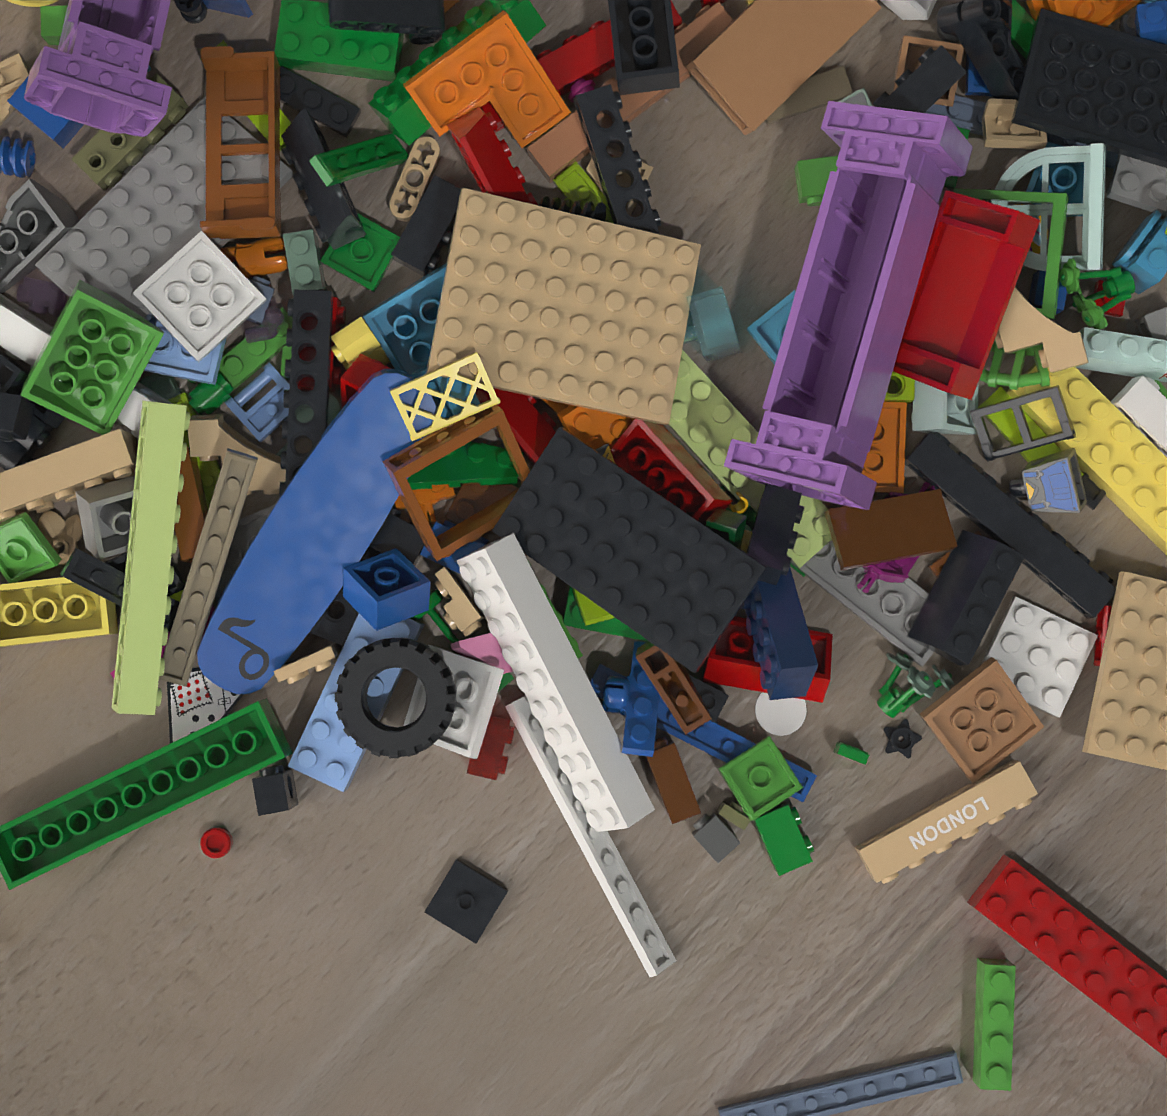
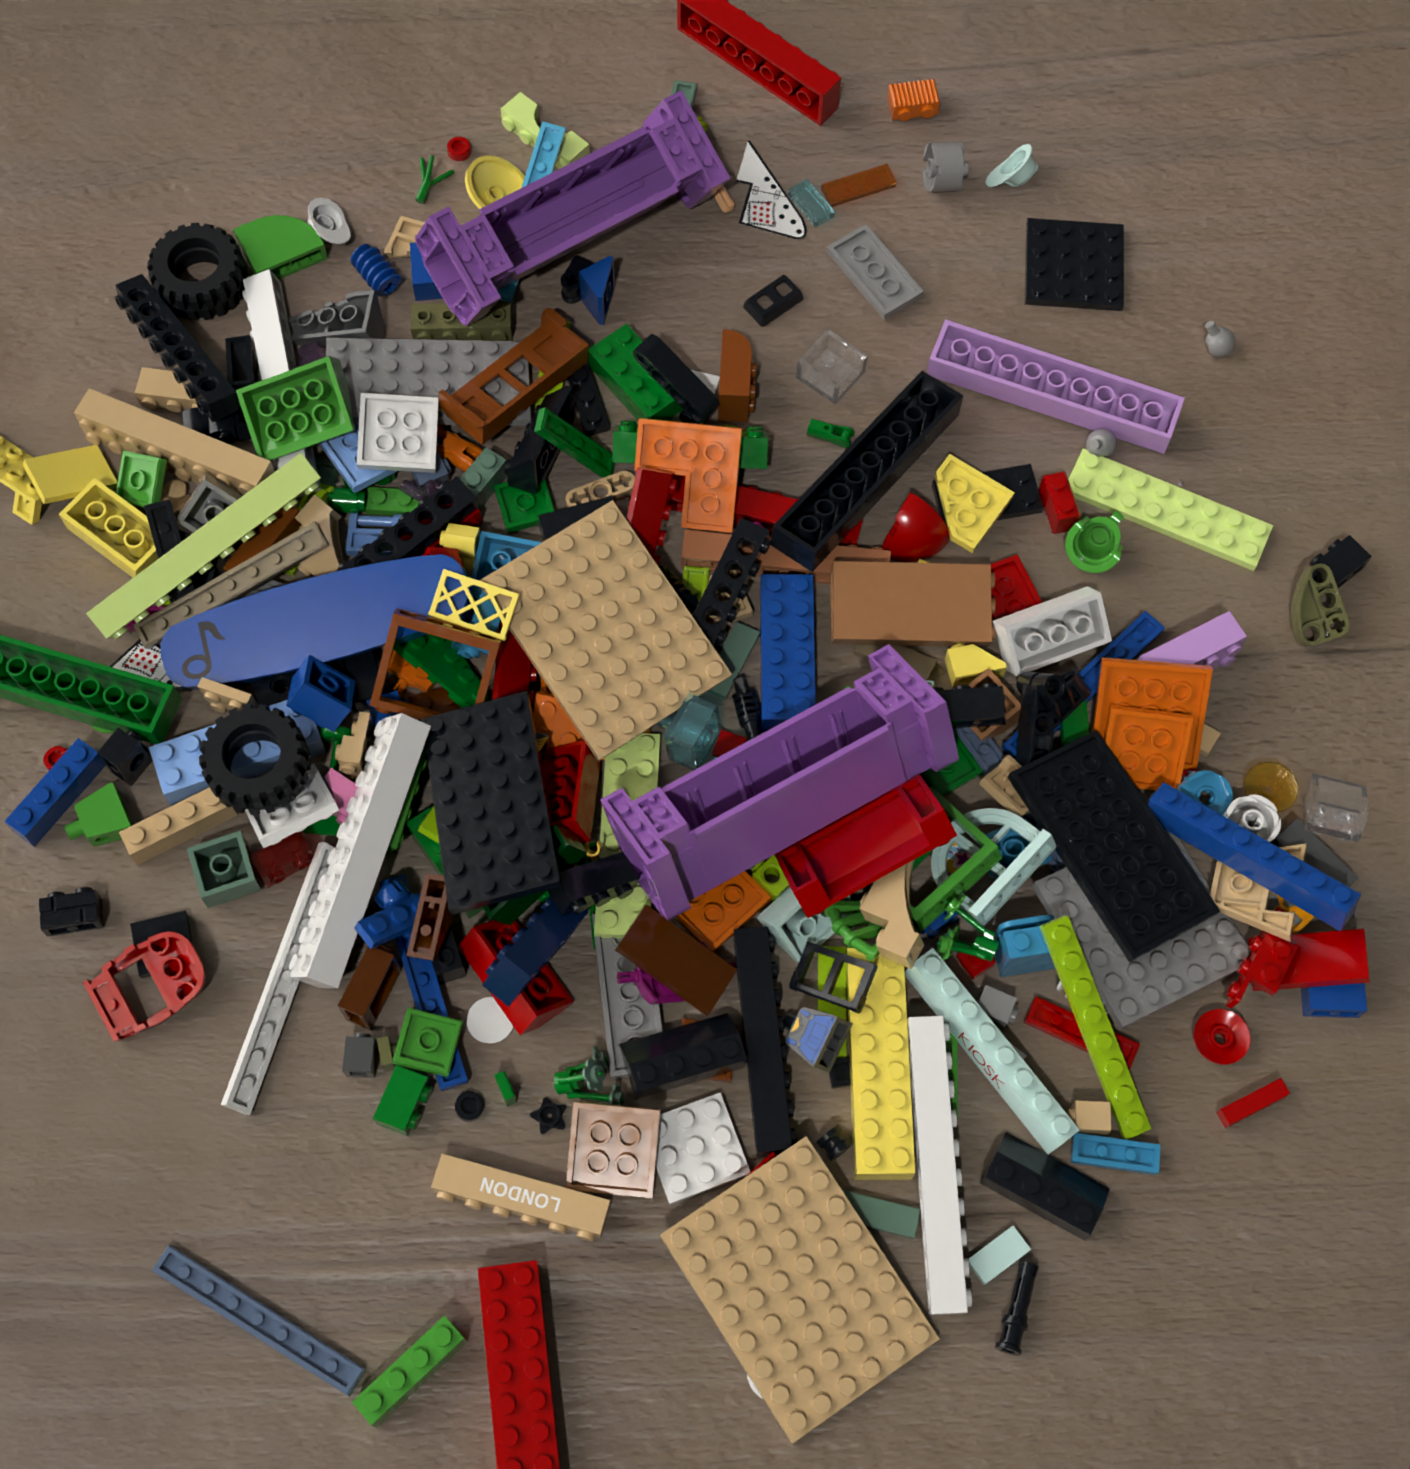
camera: 40 degrees right, 20 degrees down
(248, 872) = (55, 792): none -> blue brick
(308, 854) = (100, 817): none -> bright green torso
(368, 950) = (71, 912): none -> black brick
(373, 808) = (175, 825): none -> tan brick
(454, 801) = (223, 869): none -> sand green brick
(504, 915) = (172, 966): none -> red slope
(672, 213) = (734, 655): none -> sand green tile
(717, 177) = (786, 647): none -> blue brick
(735, 261) = (747, 708): none -> black hinge
(746, 305) = (726, 742): none -> red tile
(833, 791) = (469, 1106): none -> black tile
(876, 43) = (968, 662): none -> light yellow slope
(1139, 551) = (834, 1143): none -> black wheel

